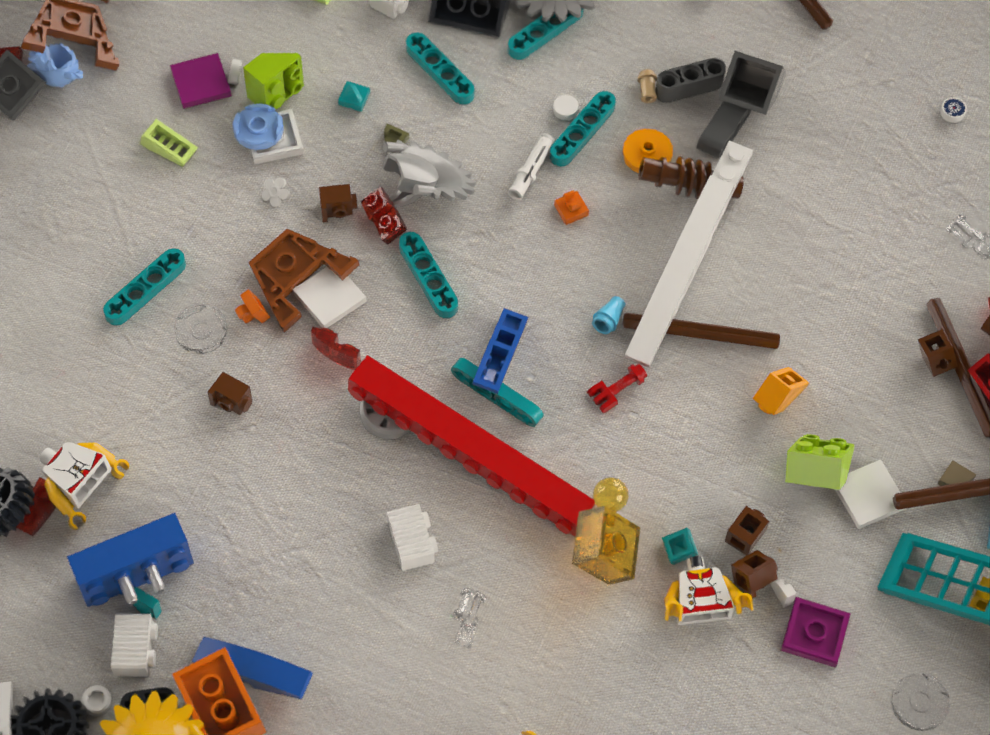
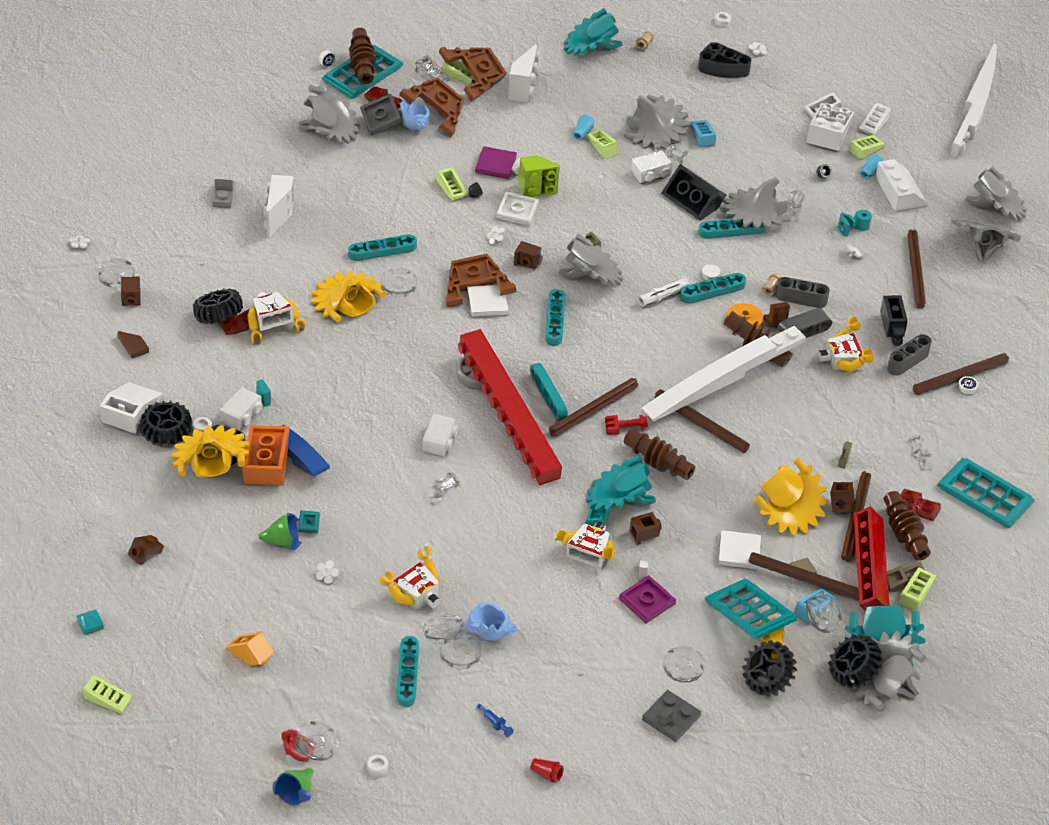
camera: 30 degrees right, 15 degrees down
(131, 561) = (276, 364): blue piece -> none
(147, 386) = (346, 294): none -> yellow piece
(204, 137) = (475, 190): none -> black hinge
(230, 394) = (389, 318): reddish brown brick -> none
(252, 308) = (435, 284): orange tile -> none
(258, 126) = (510, 198): light blue tile -> none
(328, 344) = (466, 320): clear red slope -> none
(354, 96) = (583, 210): teal tile -> none
(384, 215) = (551, 274): clear red slope -> none
(442, 66) = (648, 219): teal beam -> none
(500, 351) = (565, 369): blue slope -> none
(563, 385) = (593, 407): none -> reddish brown axle
(571, 207) = (672, 323): orange tile -> none
(604, 539) = (552, 484): clear yellow brick -> none
(607, 317) = (647, 386): medium azure cone -> none
(683, 491) = (621, 484): none -> teal piece
(688, 131) = (777, 313): none -> reddish brown bracket
(692, 413) = (659, 454): none -> reddish brown piece
(752, 83) = (836, 304): dark grey slope -> none
(754, 572) = (631, 549): reddish brown brick -> none
(779, 390) = (725, 470): light orange slope -> none
(795, 139) = (845, 351): none -> torso
(819, 462) = (717, 513): lime slope -> none
(820, 63) = (894, 318): none -> black hinge
(866, 104) = (909, 354): none -> dark grey beam
(887, 390) = (792, 498): none -> yellow piece
(893, 287) = (845, 454): none -> dark tan tile
(935, 98) = (956, 375): none -> reddish brown axle

